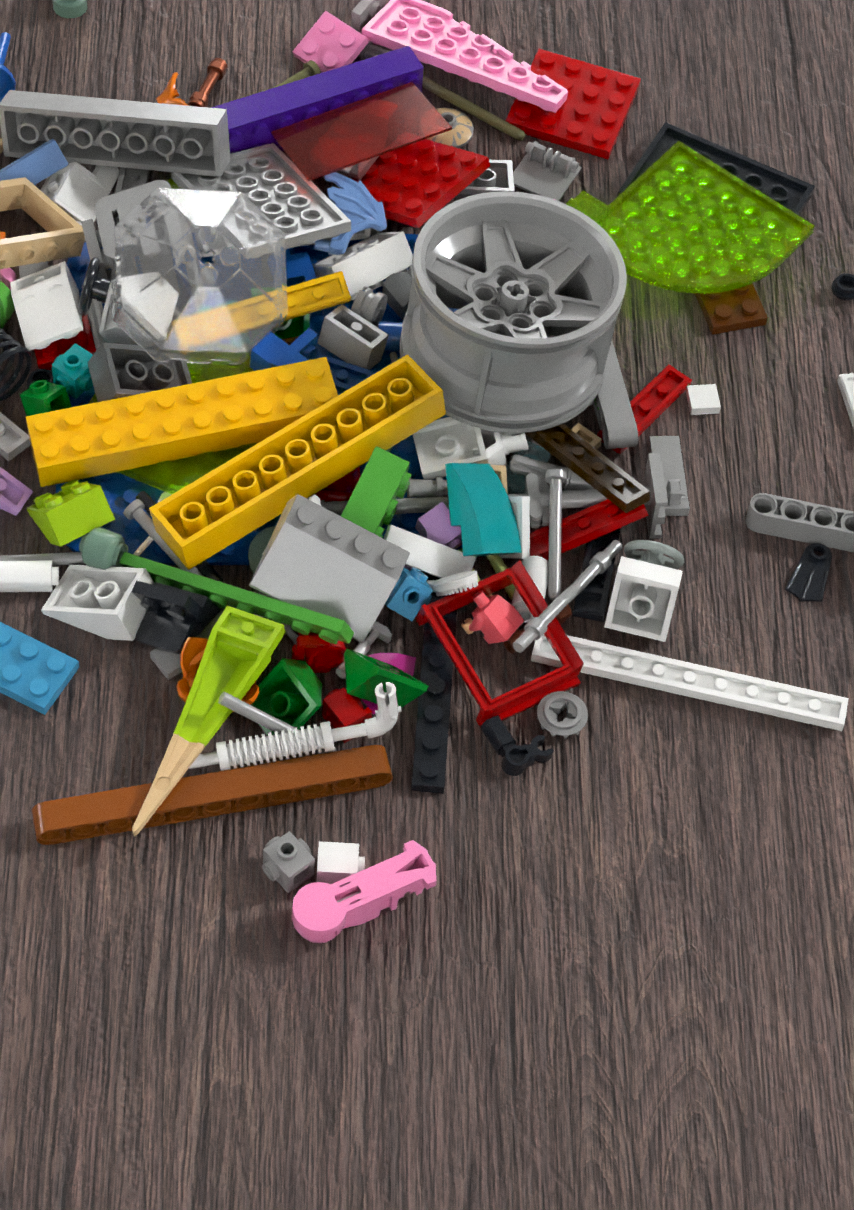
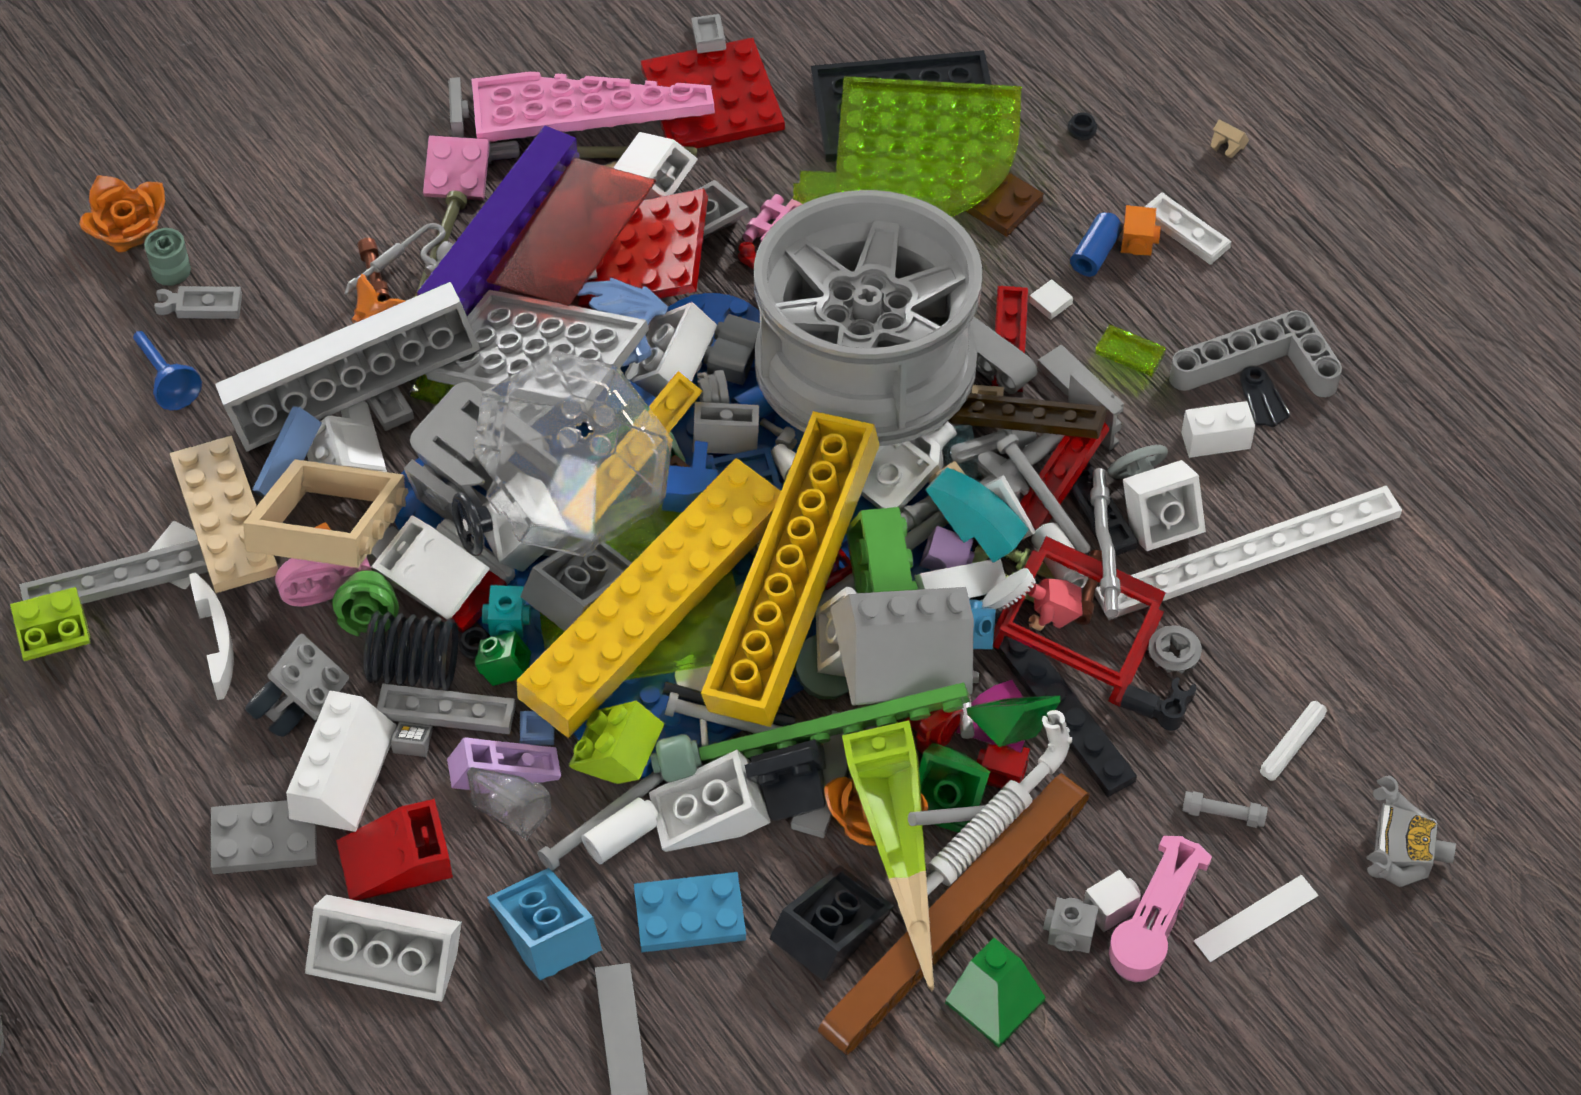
camera: 30 degrees left, 0 degrees up
(26, 470) = (535, 729): none -> medium blue tile
(67, 37) = (201, 302): none -> light grey plate
(111, 739) = (829, 922): none -> black slope
(187, 873) = (995, 993): none -> green slope
(231, 78) = (398, 249): none -> light grey piece
(444, 955) = (1255, 918): none -> white sticker
(473, 839) = (1254, 815): none -> light grey bar
(475, 125) = (659, 160): none -> white slope
(545, 173) = (747, 174): light grey hinge -> none
(595, 842) = (1293, 740): none -> white axle
(607, 56) = (708, 33): none -> light grey tile
(611, 975) = (1404, 839): none -> light grey torso
(731, 473) = (1130, 350): none -> clear neon green plate
(746, 572) = (1218, 429): none -> white brick
(776, 378) = (1096, 244): none -> blue brick
(819, 388) = (1139, 230): none -> orange brick

